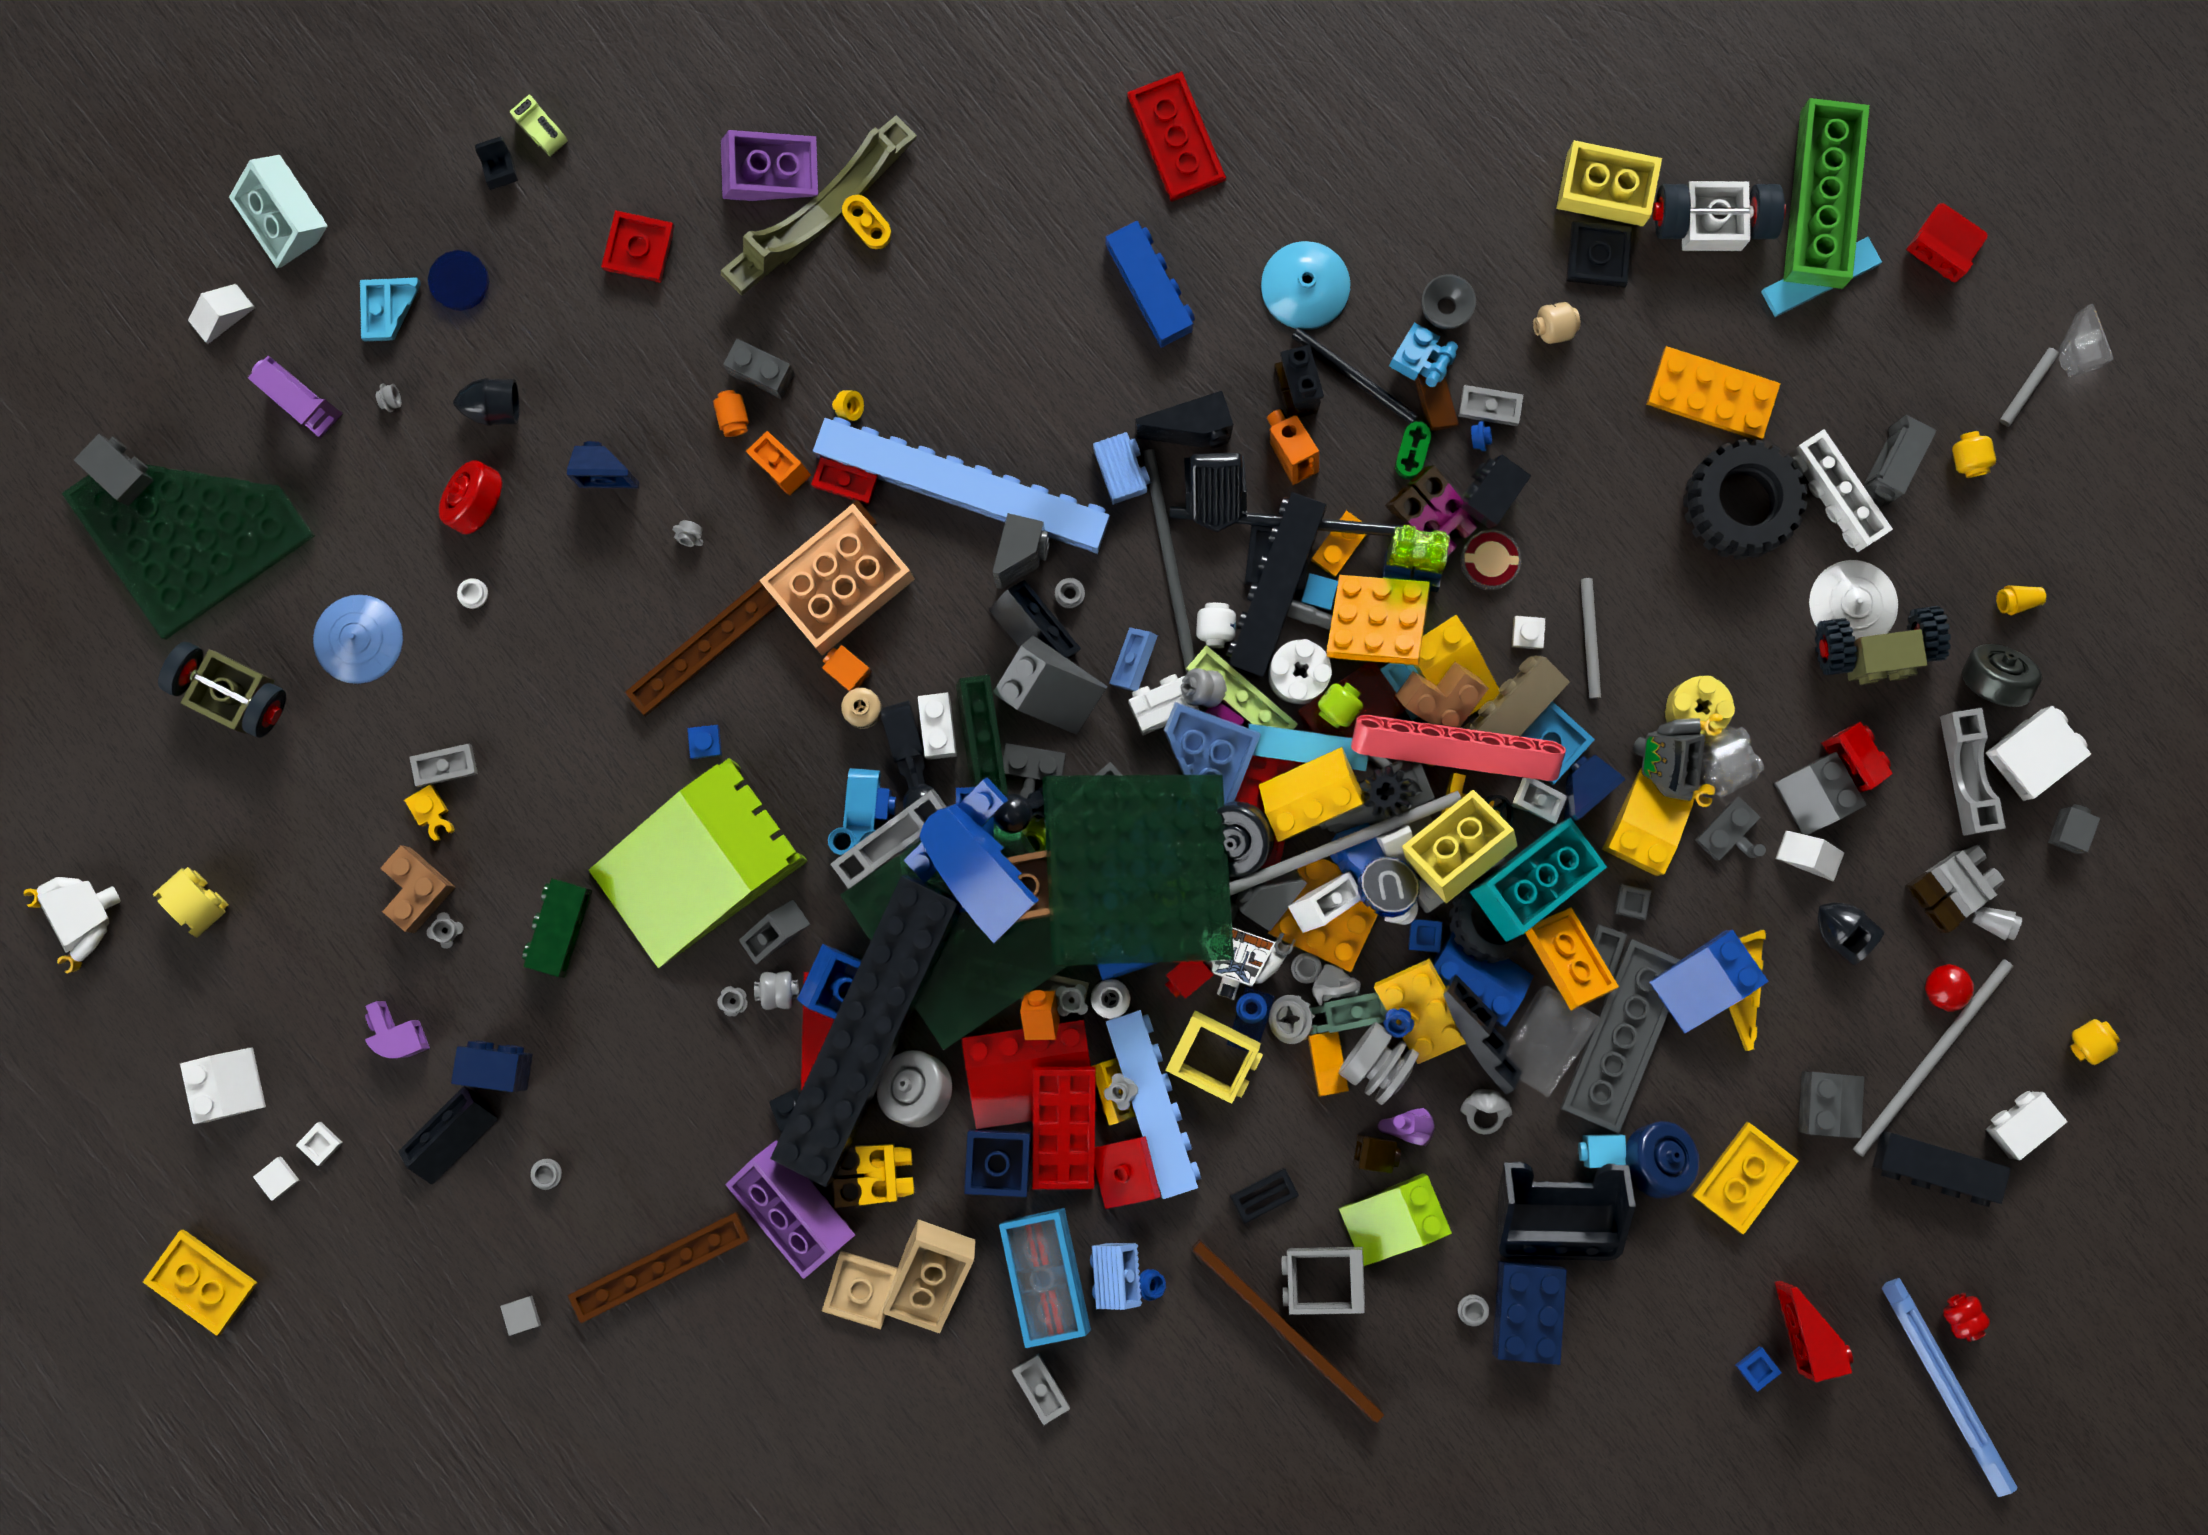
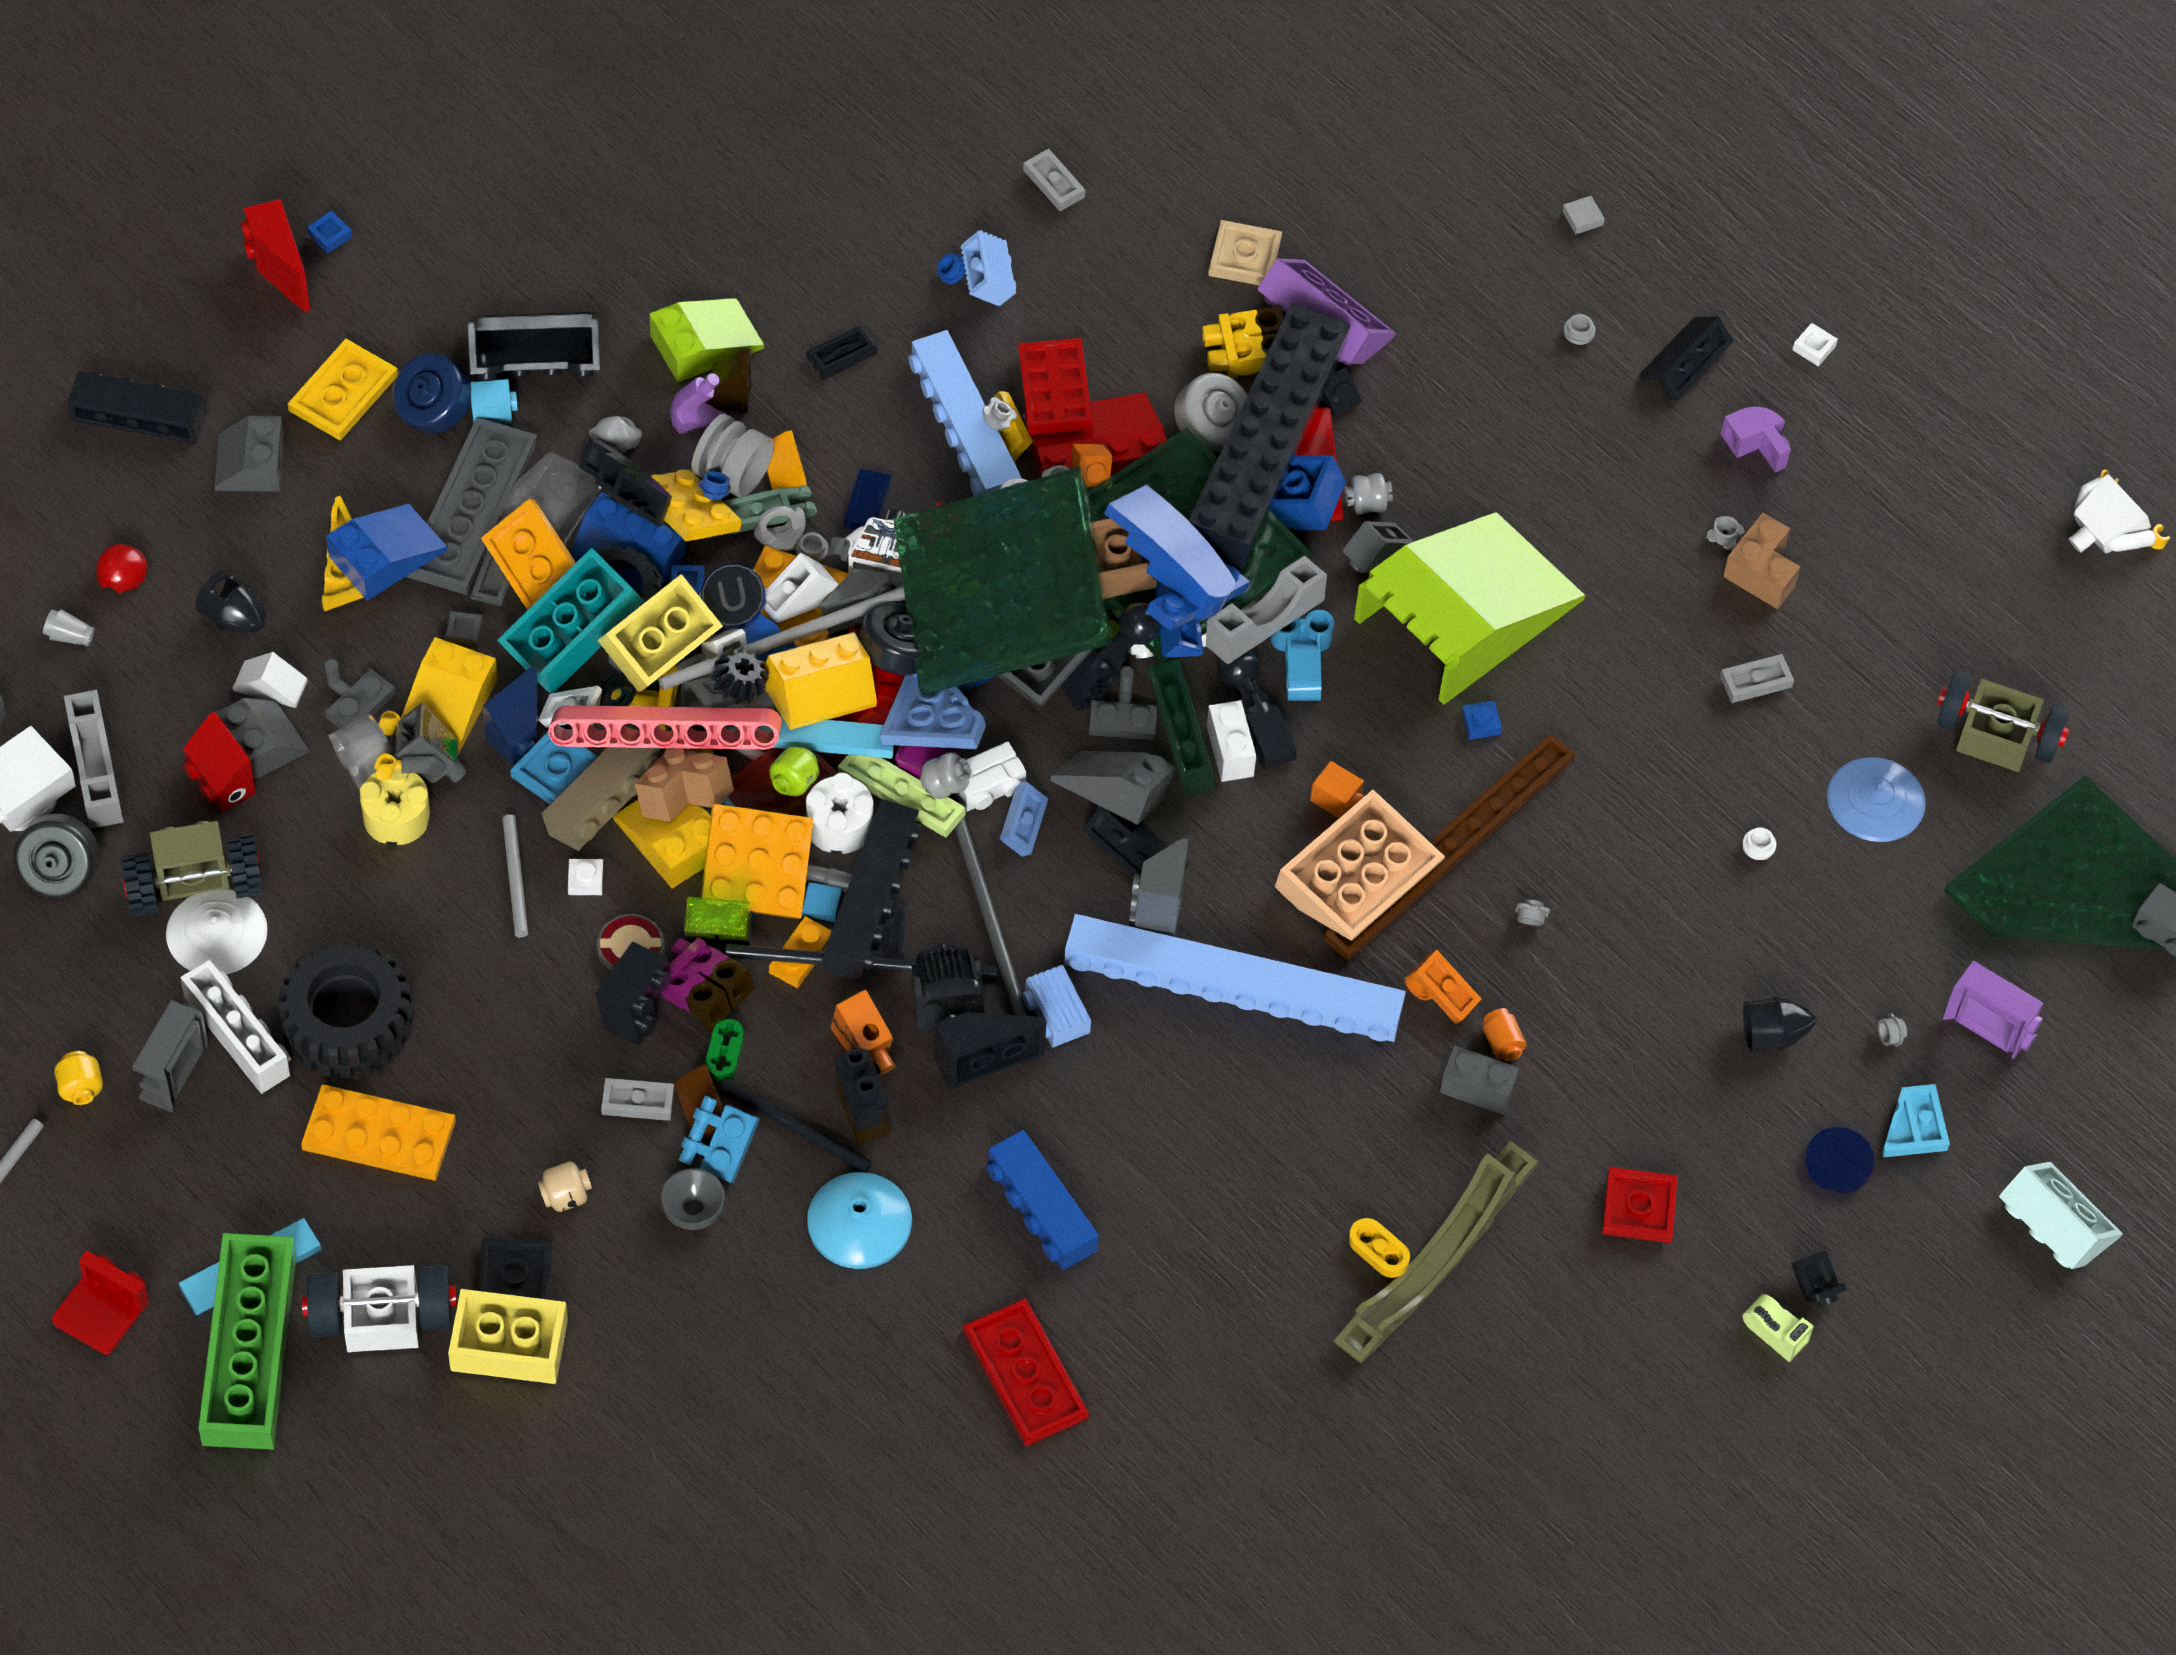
camera: 170 degrees right, 25 degrees down
(190, 902) = (1992, 531): light yellow brick -> none
(200, 1282) = (1906, 222): yellow plate -> none
(219, 311) = (2100, 1109): white slope -> none
(222, 1085) = (1923, 382): white slope -> none
(276, 1178) = (1851, 313): white tile -> none
(427, 809) = (1762, 640): yellow plate -> none
(470, 497) = (1778, 929): red wheel -> none
(492, 1068) = (1649, 403): dark blue brick -> none
(556, 927) = (1608, 537): dark green brick -> none
(598, 468) = (1638, 961): dark blue slope -> none
(658, 1267) = (1450, 258): reddish brown plate -> none
(724, 1001) = (1413, 479): light grey plate -> none
(768, 166) = (1502, 1295): medium lavender slope -> none
(844, 480) = (1367, 970): red plate -> none
(848, 405) = (1373, 1052): yellow tile -> none
(871, 712) = (1315, 750): tan head -> none
(884, 804) = (1278, 666): blue plate -> none
(929, 1276) = (1176, 263): tan slope -> none
(997, 1163) = (1119, 354): dark blue brick -> none
(1045, 1278) = (1060, 264): clear brick -> none
(1069, 583) = (1101, 875): light grey plate -> none
(1126, 1173) = (987, 354): red plate -> none
(1203, 1080) = (911, 439): light yellow window -> none
(1216, 624) = (935, 855): white head -> none
(1261, 1008) = (868, 495): blue plate -> none
(1282, 1009) = (830, 491): light grey gear -> none
(1287, 1331) = (811, 238): reddish brown tile -> none
(1290, 1293) = (775, 255): light grey window -> none
(1473, 1310) = (621, 266): light grey plate -> none
(1481, 436) = (647, 1065): blue plate -> none
(1529, 1312) = (565, 263): dark blue brick -> none
(1933, 1057) = (140, 507): light grey piece -> none
(1949, 1388) = (134, 228): medium blue piece -> none
(1965, 885) = (114, 655): light grey hips -> none
(1966, 1317) = (115, 282): red piece -> none
(2019, 598) = (29, 938): yellow cone -> none
(2025, 1124) = (45, 448): white brick -> none

